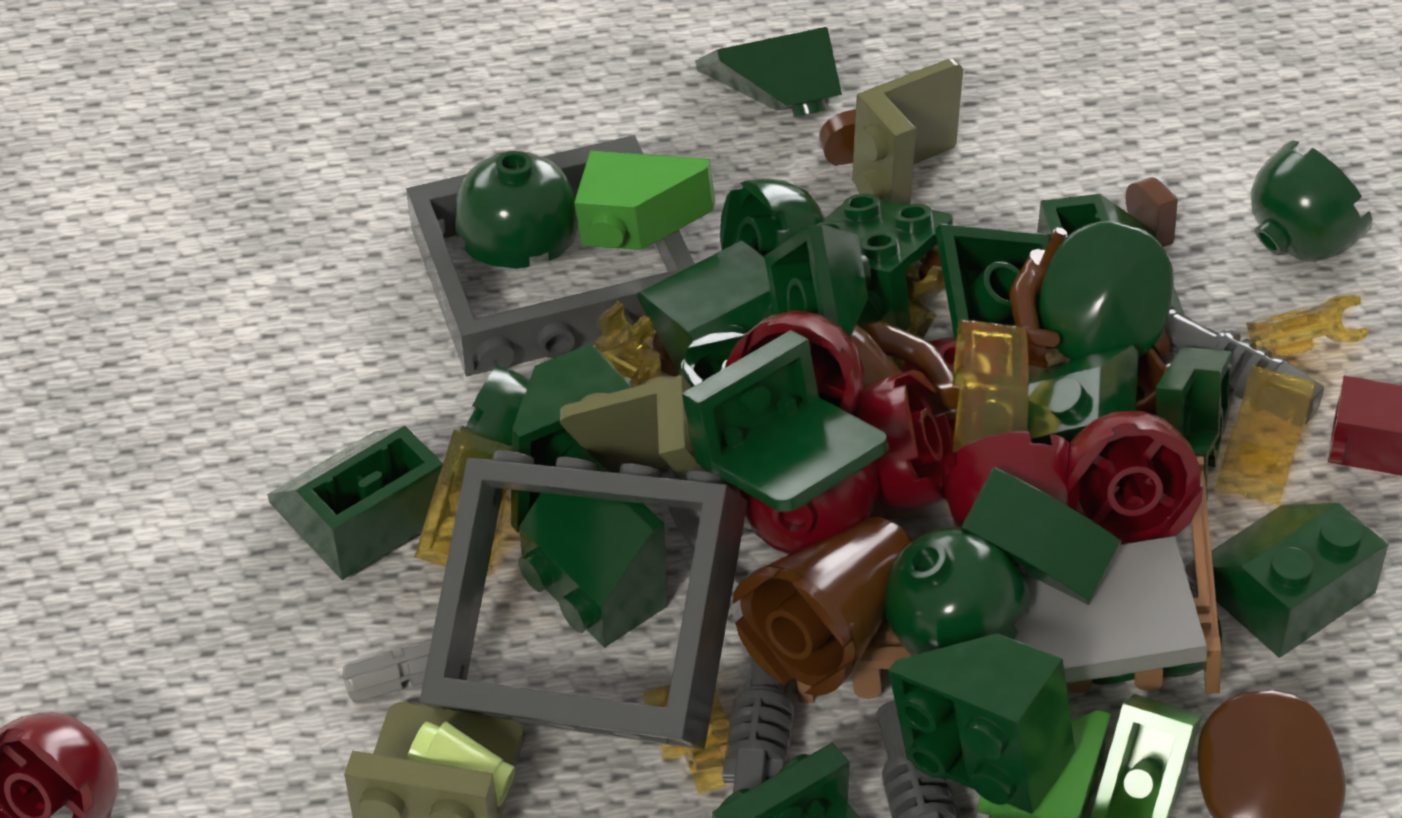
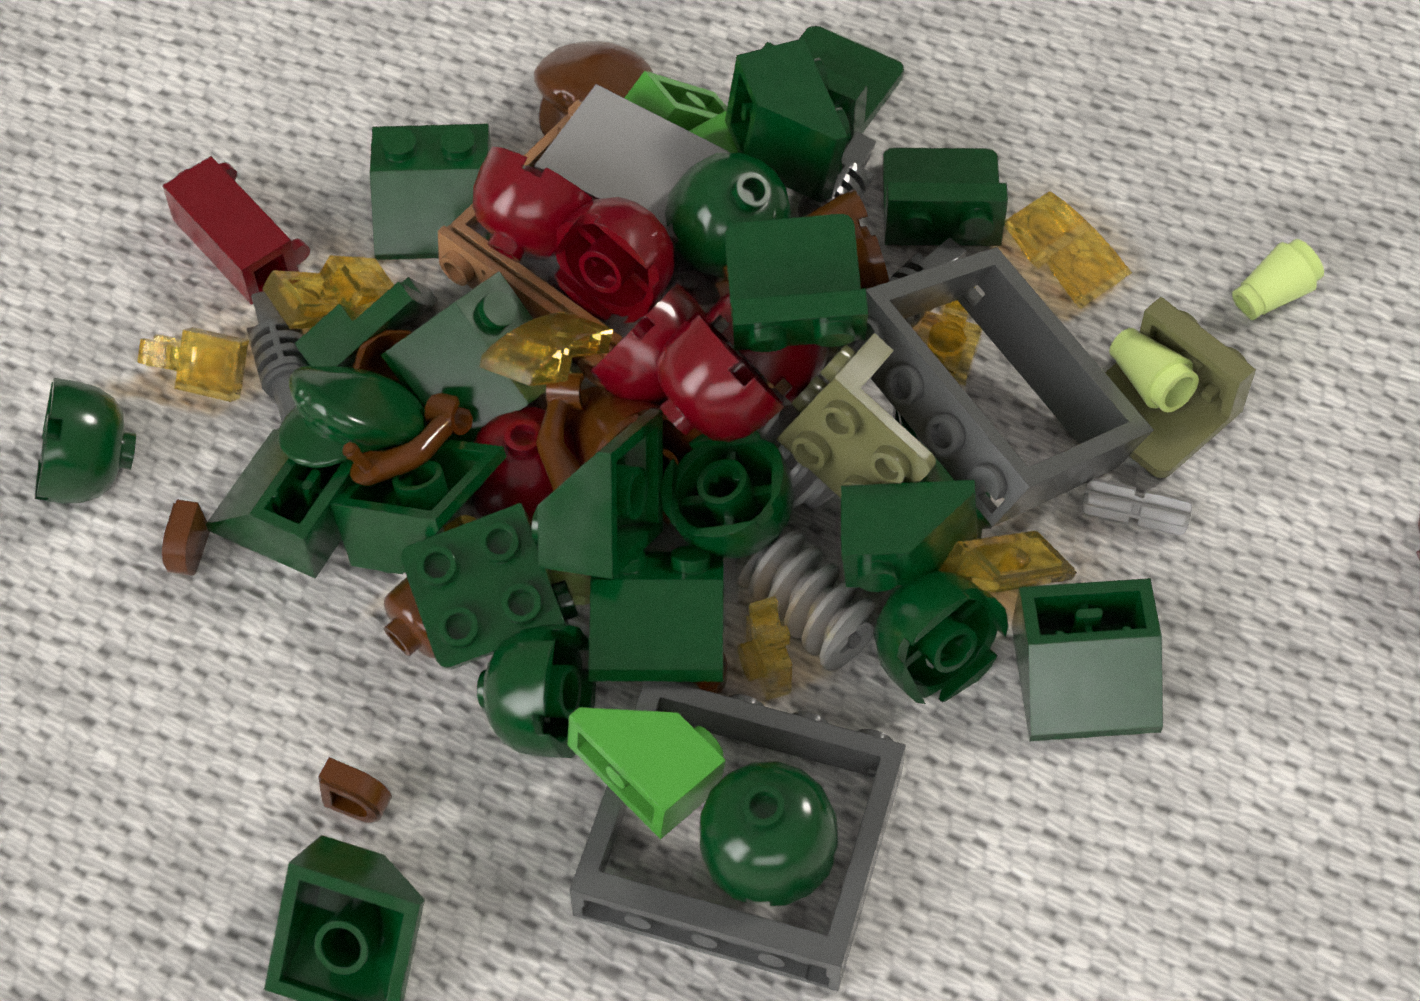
camera: 145 degrees left, 10 degrees up
(903, 126) = (307, 731): olive bracket -> none
(1042, 535) = (649, 183): dark green slope -> none

